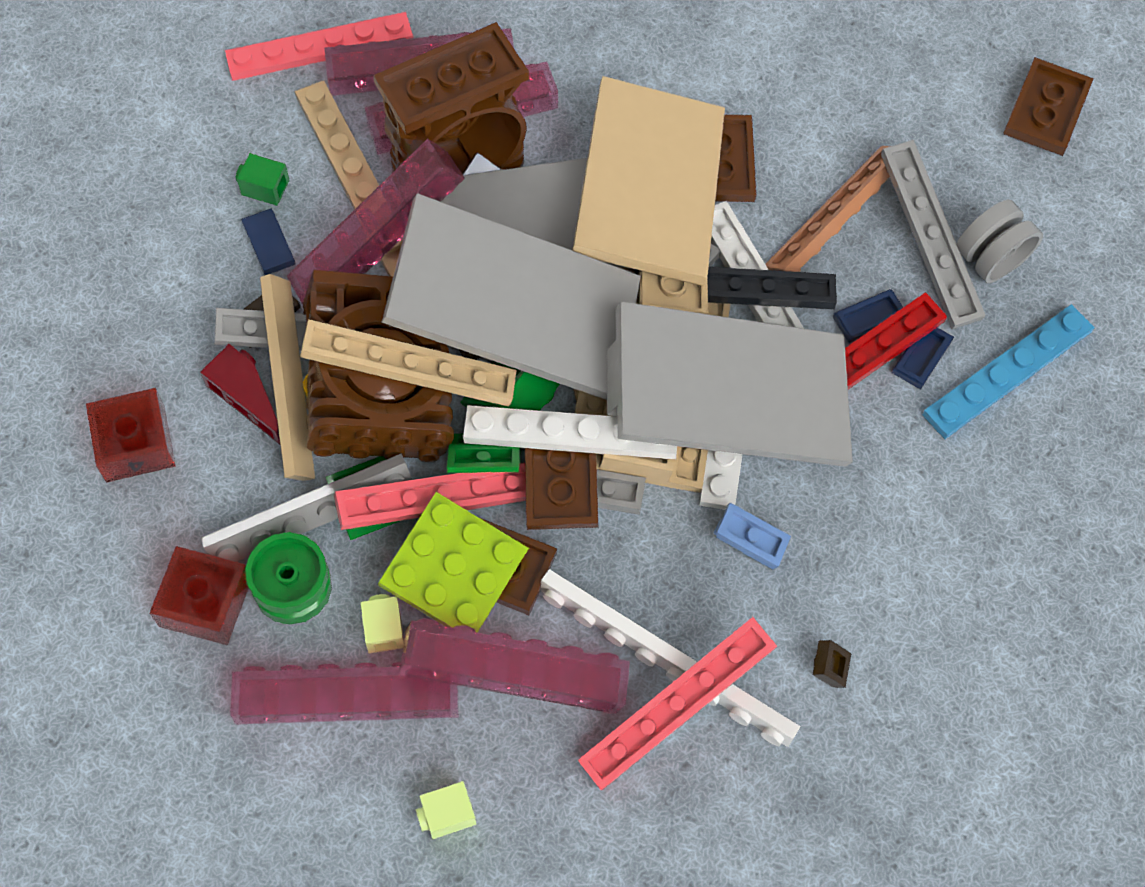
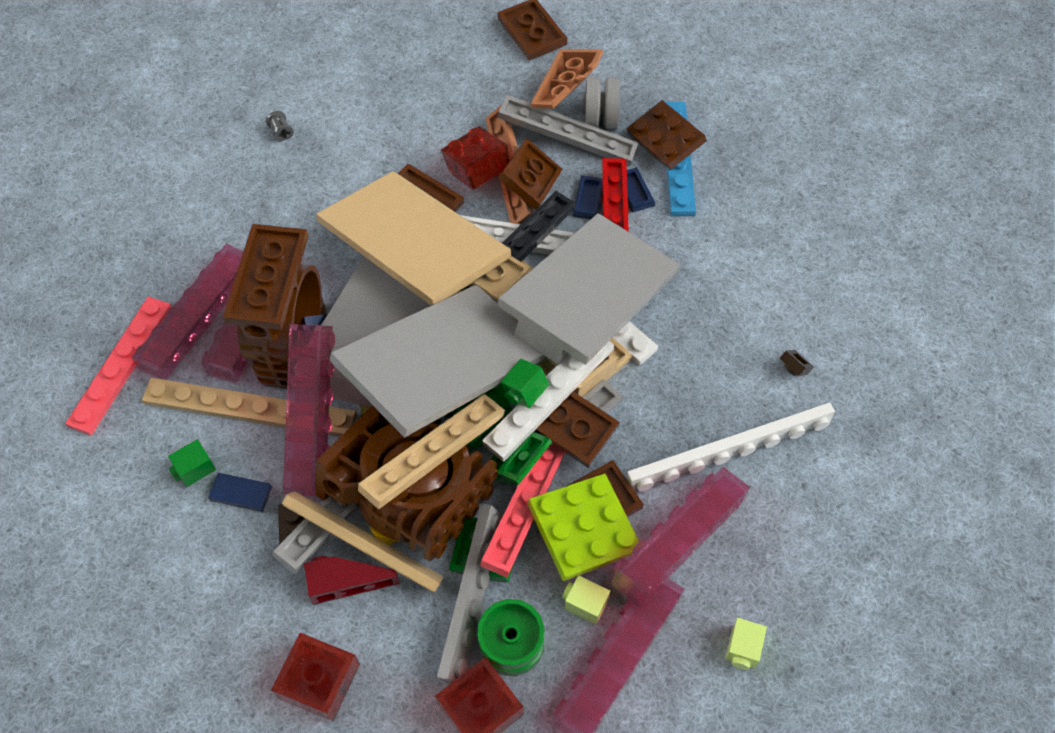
camera: 50 degrees left, 5 degrees down
(551, 397) = (524, 383): none -> green brick
(677, 703) = (771, 458): coral plate -> none
(752, 536) = (685, 349): medium blue plate -> none
(811, 170) = (475, 157): none -> clear red brick
(836, 235) = (530, 174): none -> reddish brown plate
(992, 180) = (565, 75): none -> nougat wedge
(1021, 336) = (666, 134): none -> reddish brown plate

